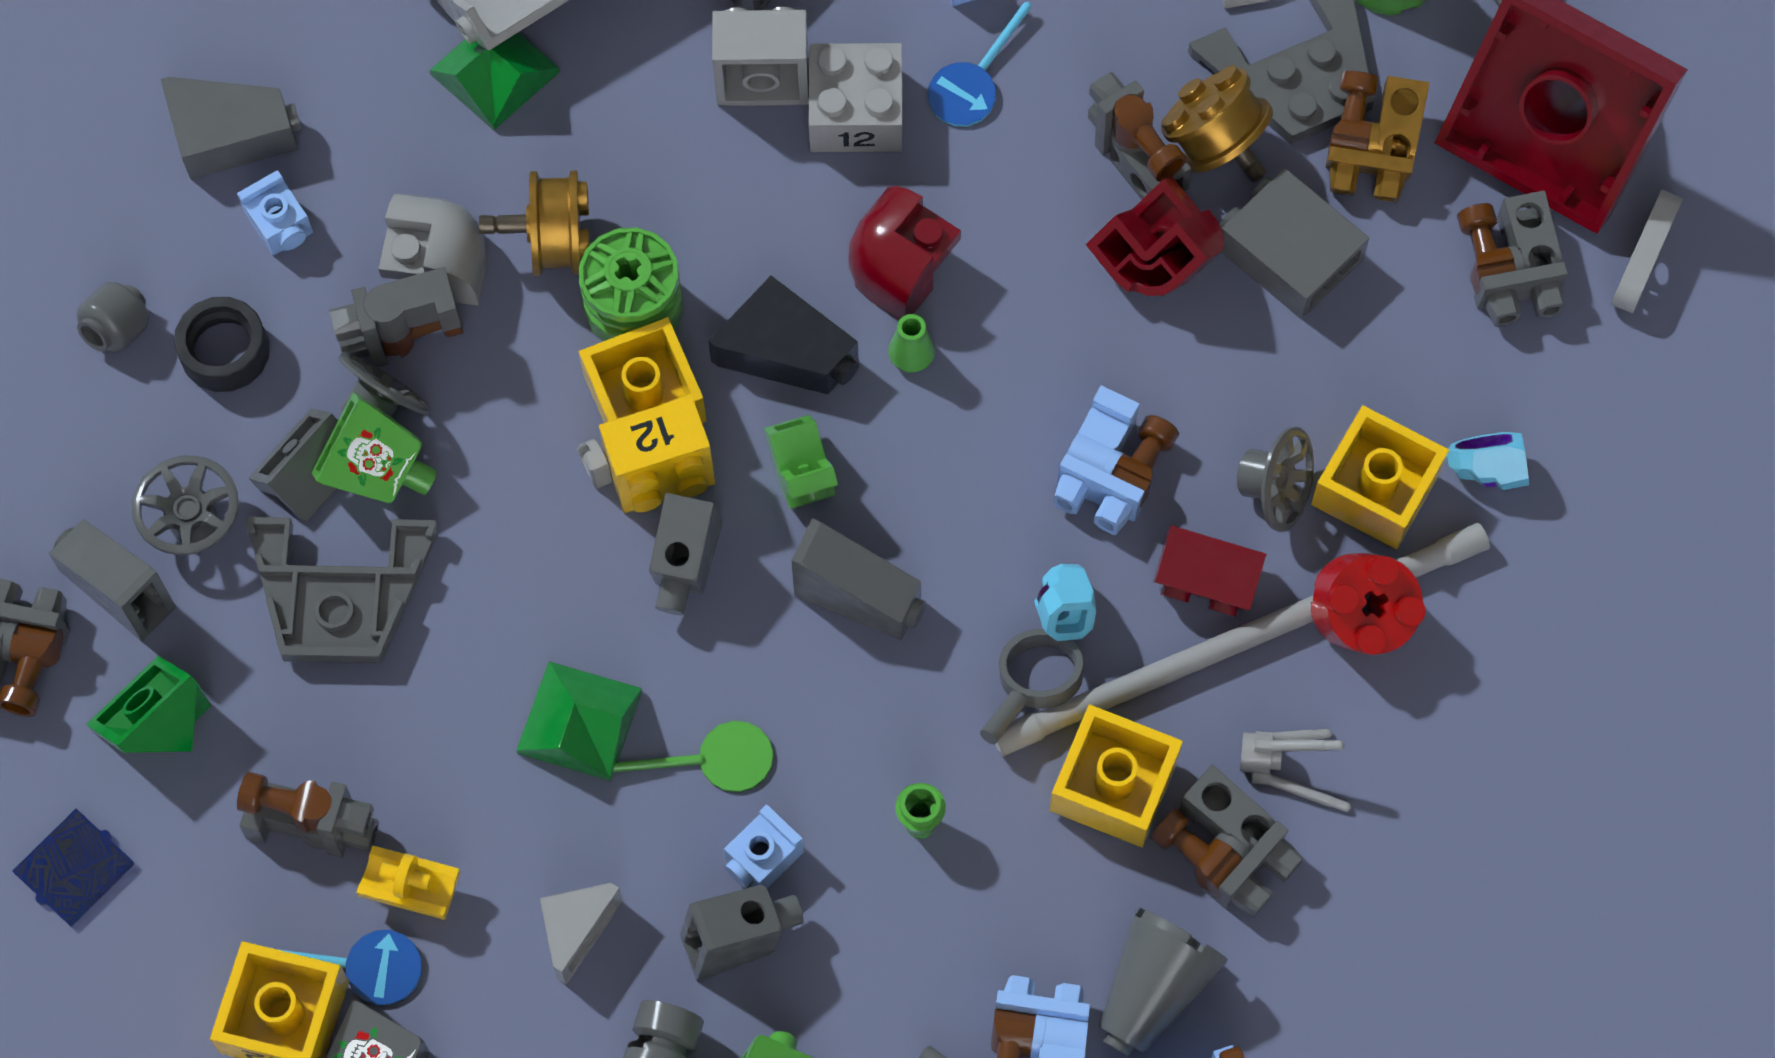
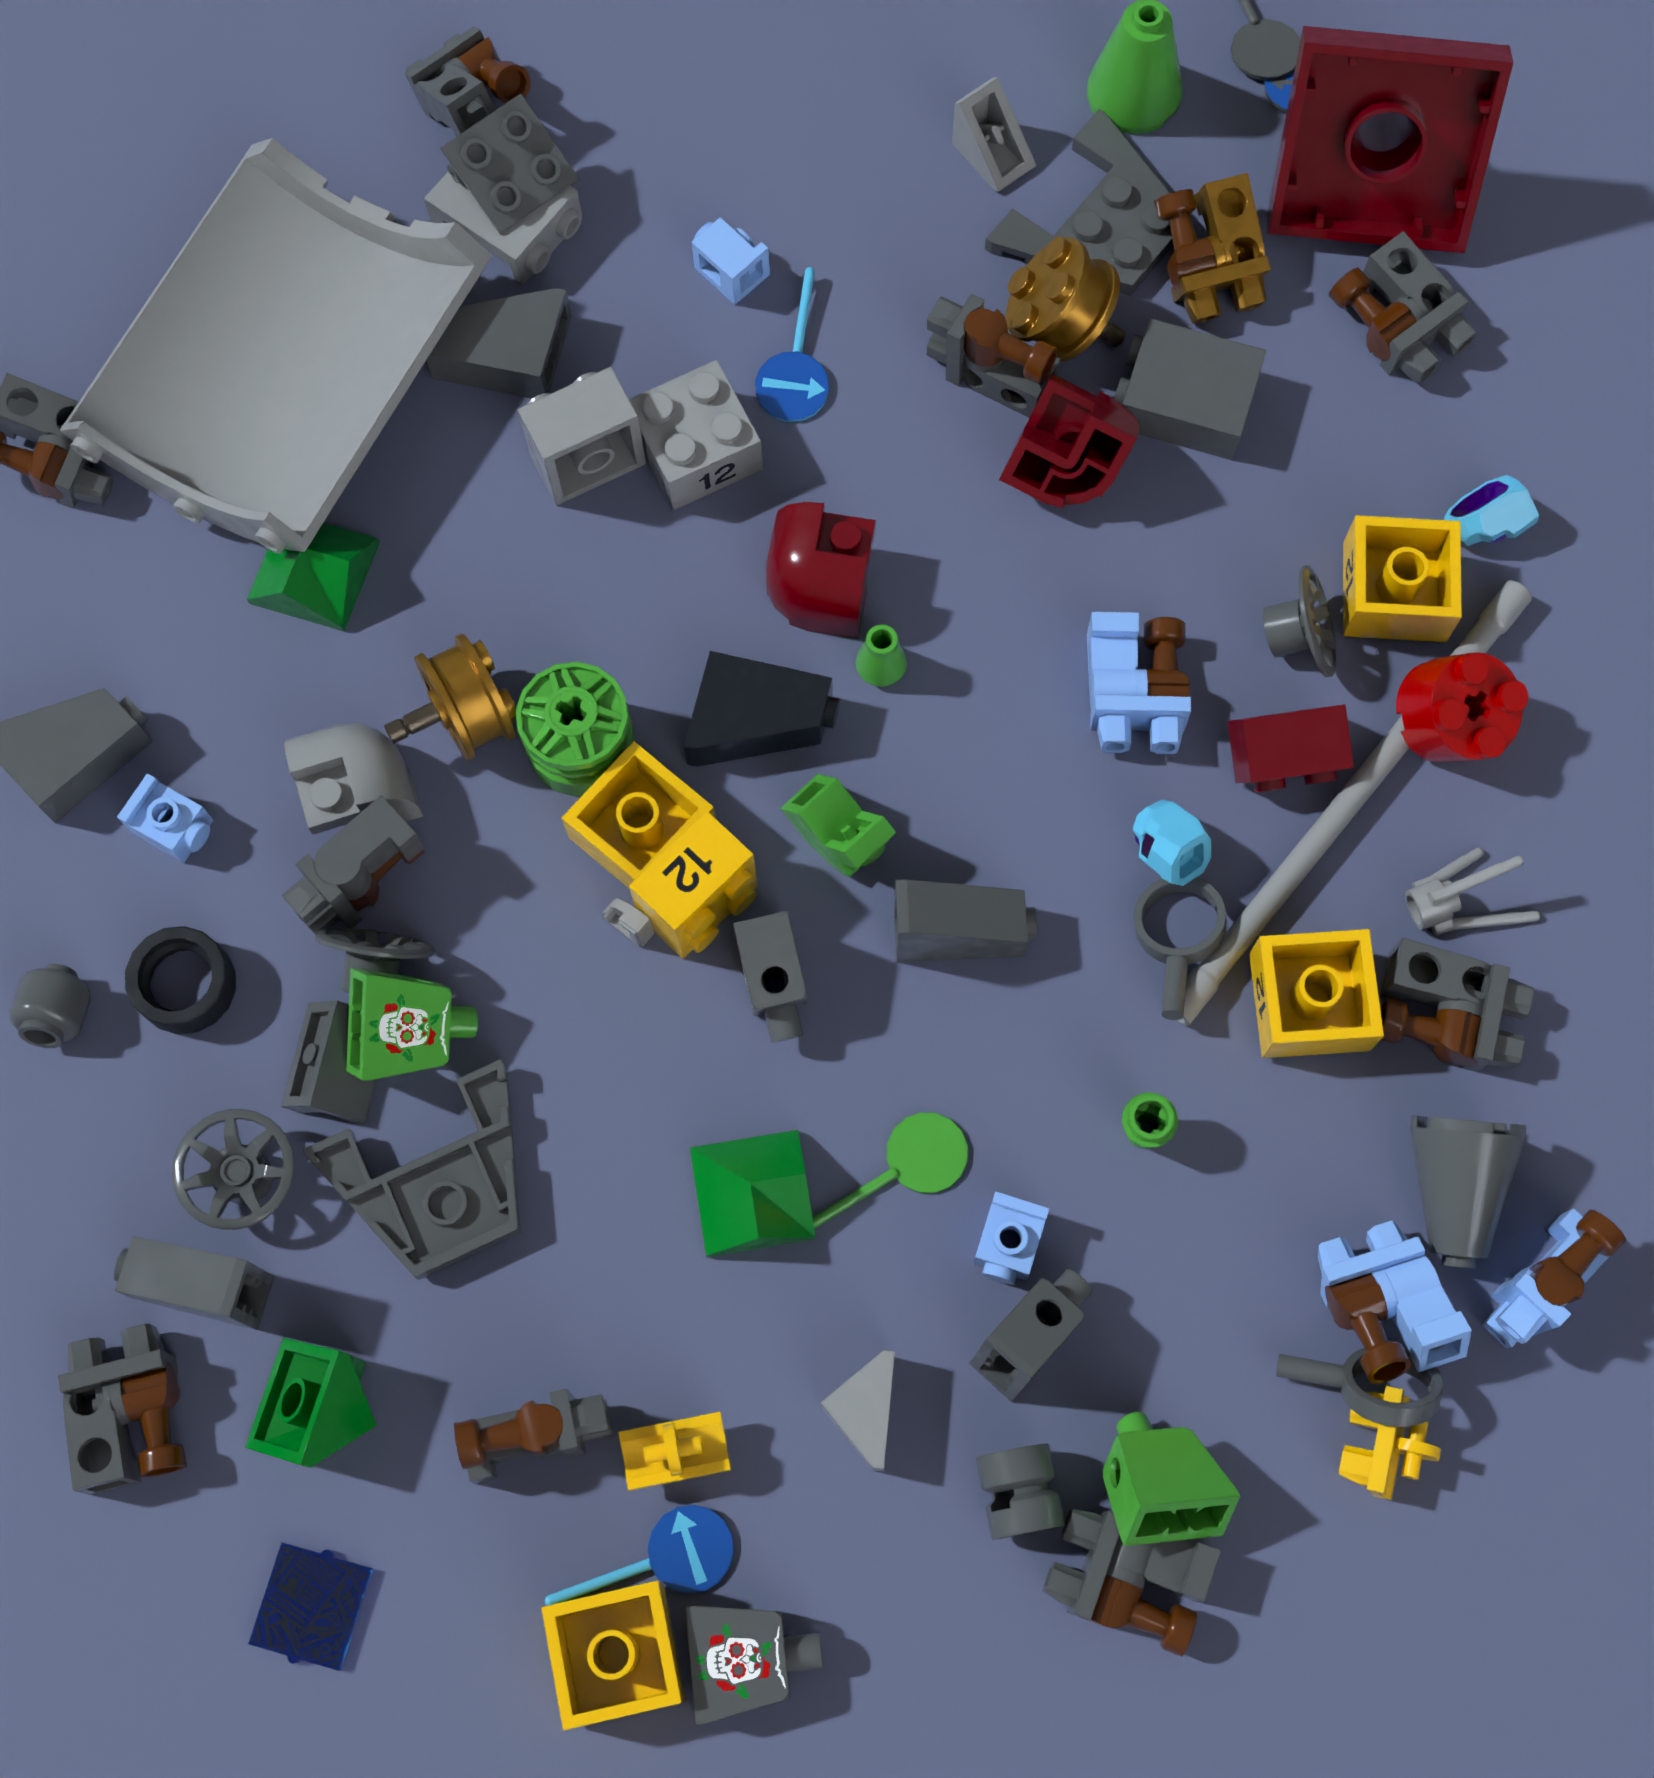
camera: 25 degrees left, 5 degrees up
(1646, 251) = (1519, 249): light grey beam -> none

